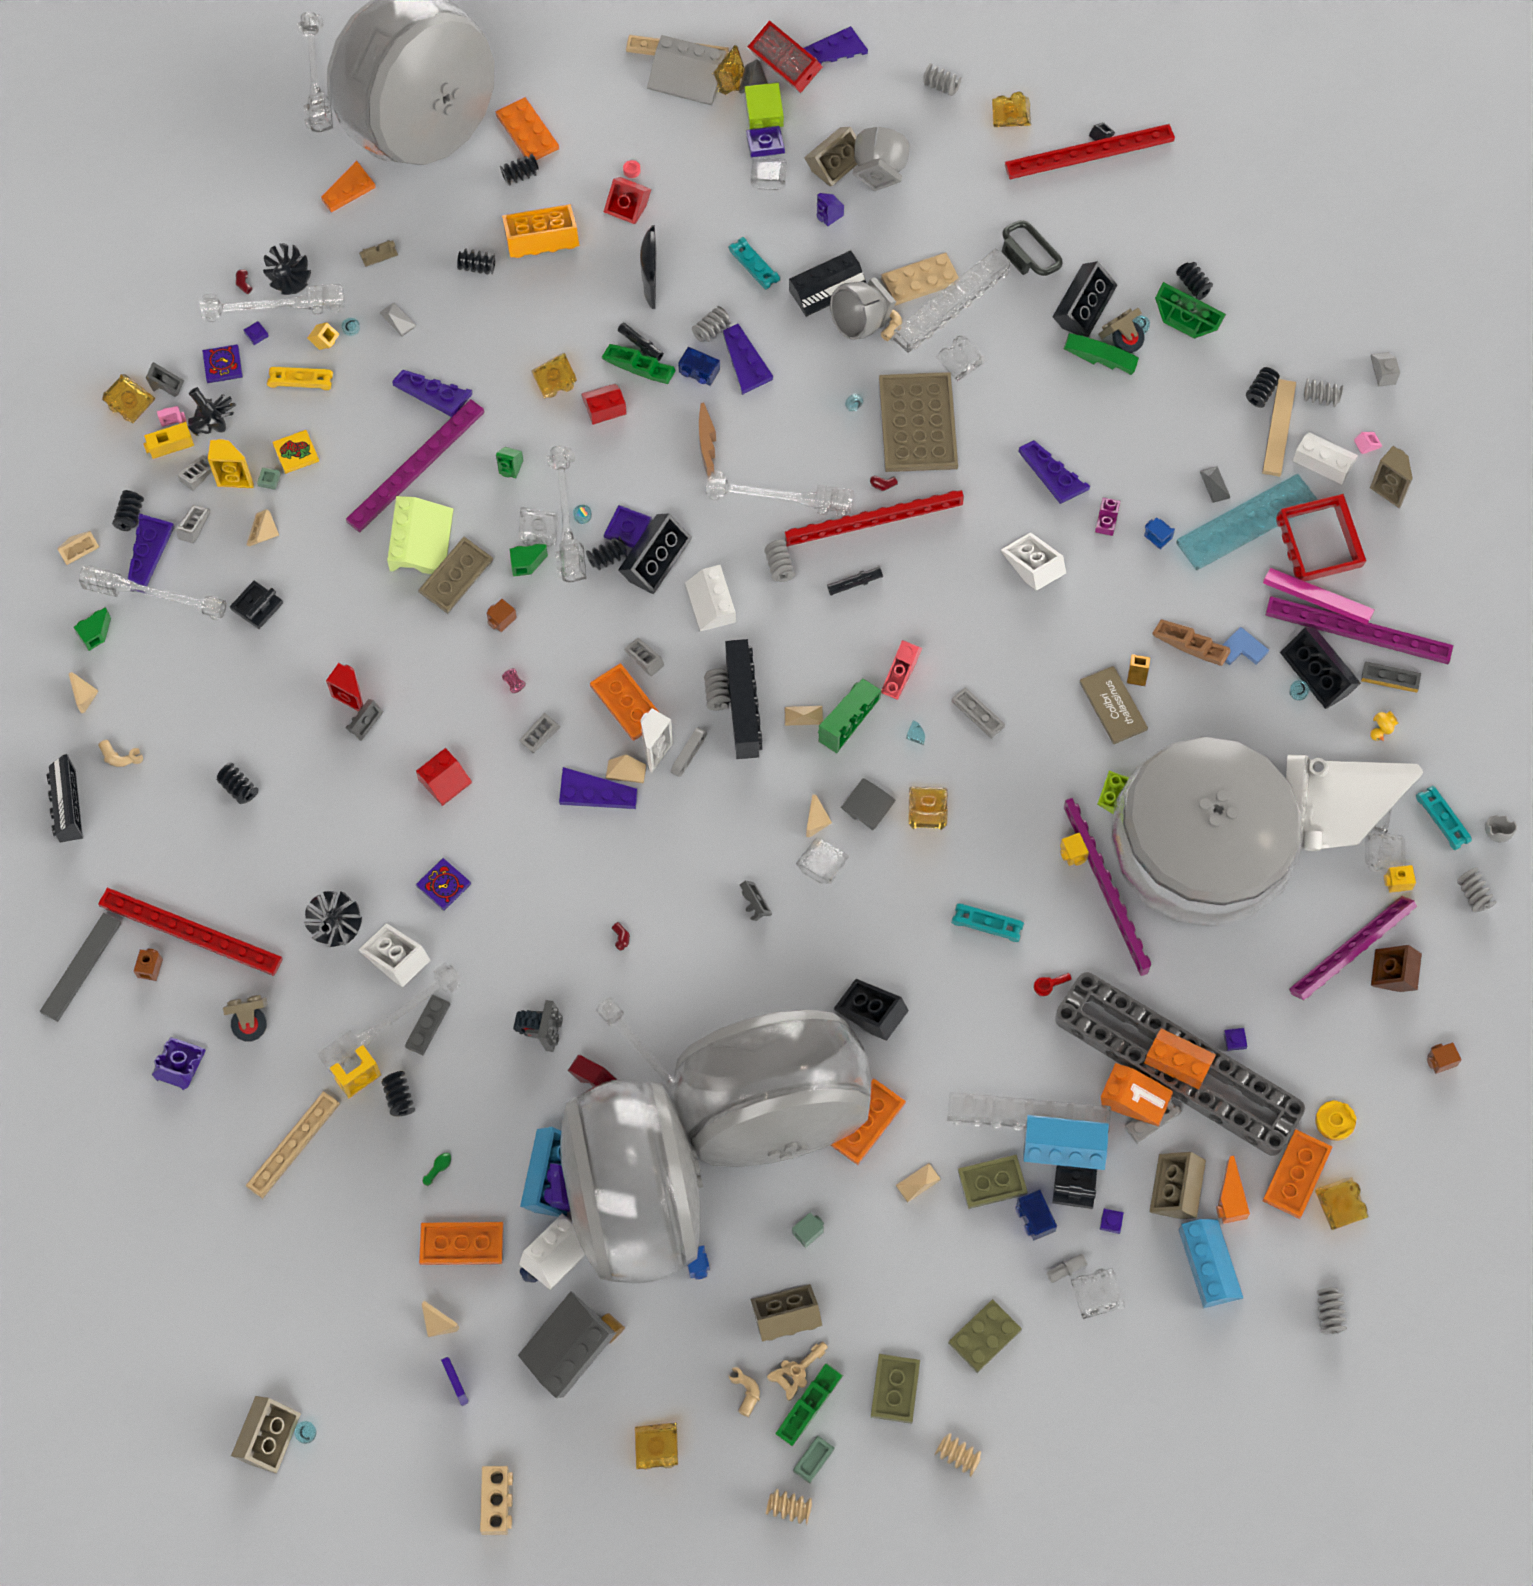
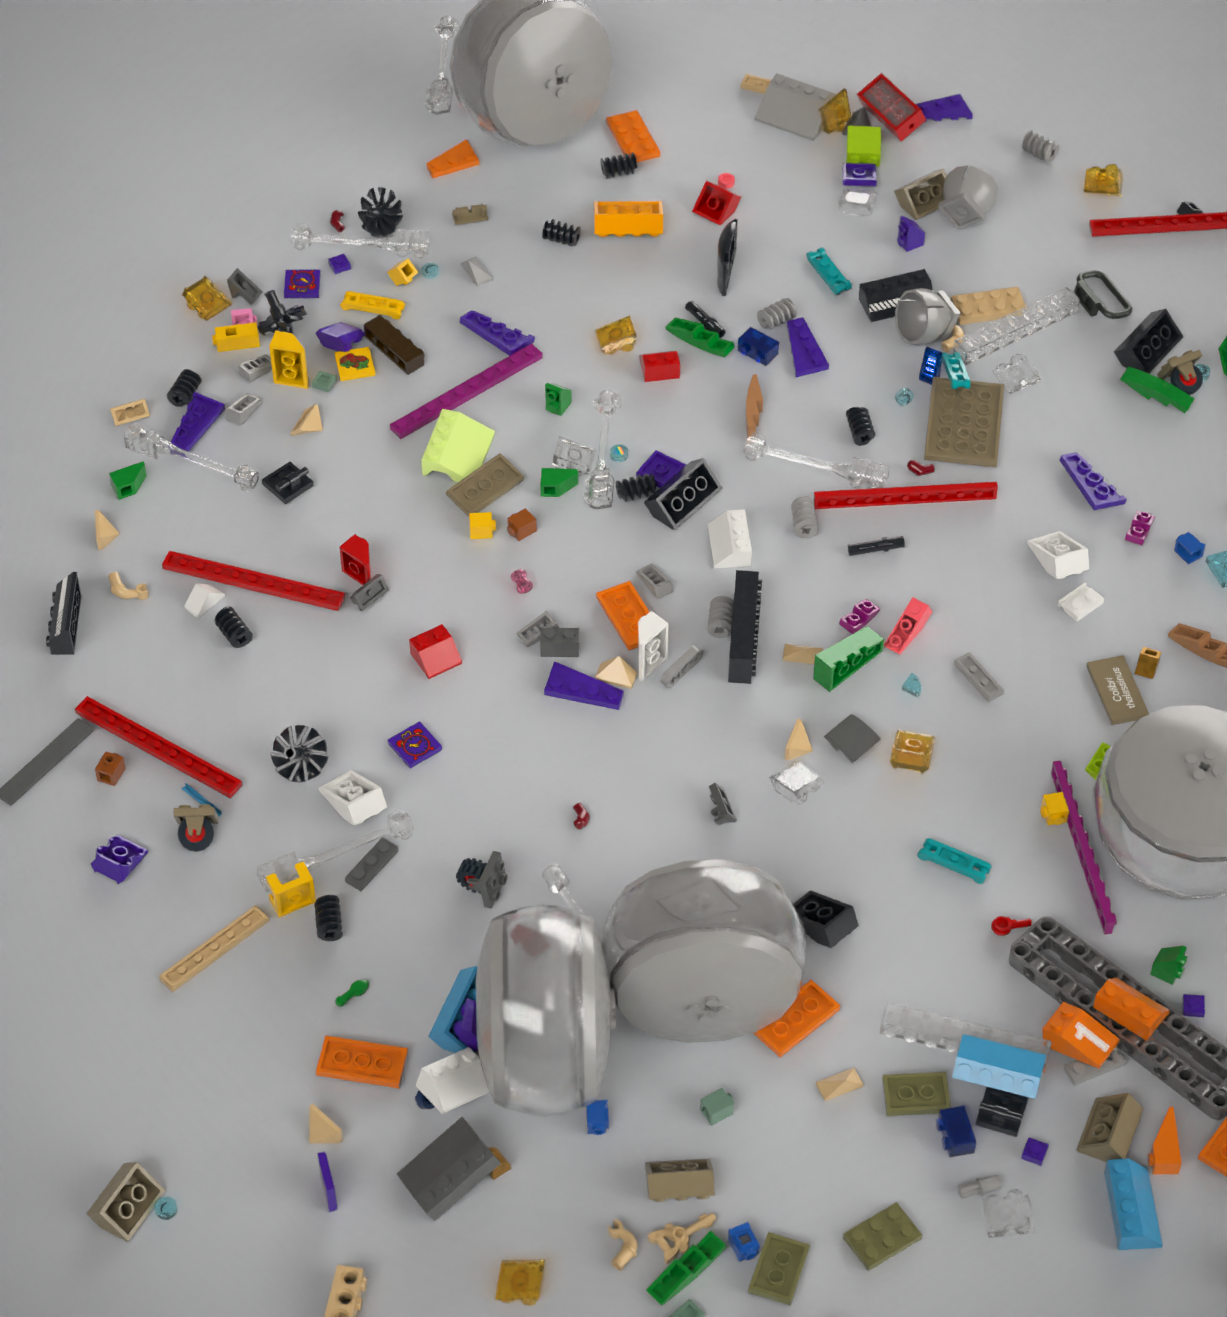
camera: 10 degrees right, 15 degrees down
(199, 754) = (202, 599): none -> white slope
(245, 725) = (253, 580): none -> red plate
(246, 982) = (193, 793): none -> dark azure piece
(274, 422) = (339, 336): none -> dark purple slope
(331, 423) = (394, 344): none -> dark brown brick
(461, 623) = (481, 525): none -> yellow brick
(564, 745) = (559, 642): none -> dark grey brick
(816, 444) = (860, 425): none -> black piece
(852, 663) = (860, 616): none -> magenta slope
(858, 1368) = (743, 1242): none -> blue window
(875, 365) = (930, 367): none -> clear blue slope
(900, 364) = (956, 370): none -> teal plate
(1063, 611) = (1080, 602): none -> white plate
(1208, 1001) = (1169, 964): none -> green slope

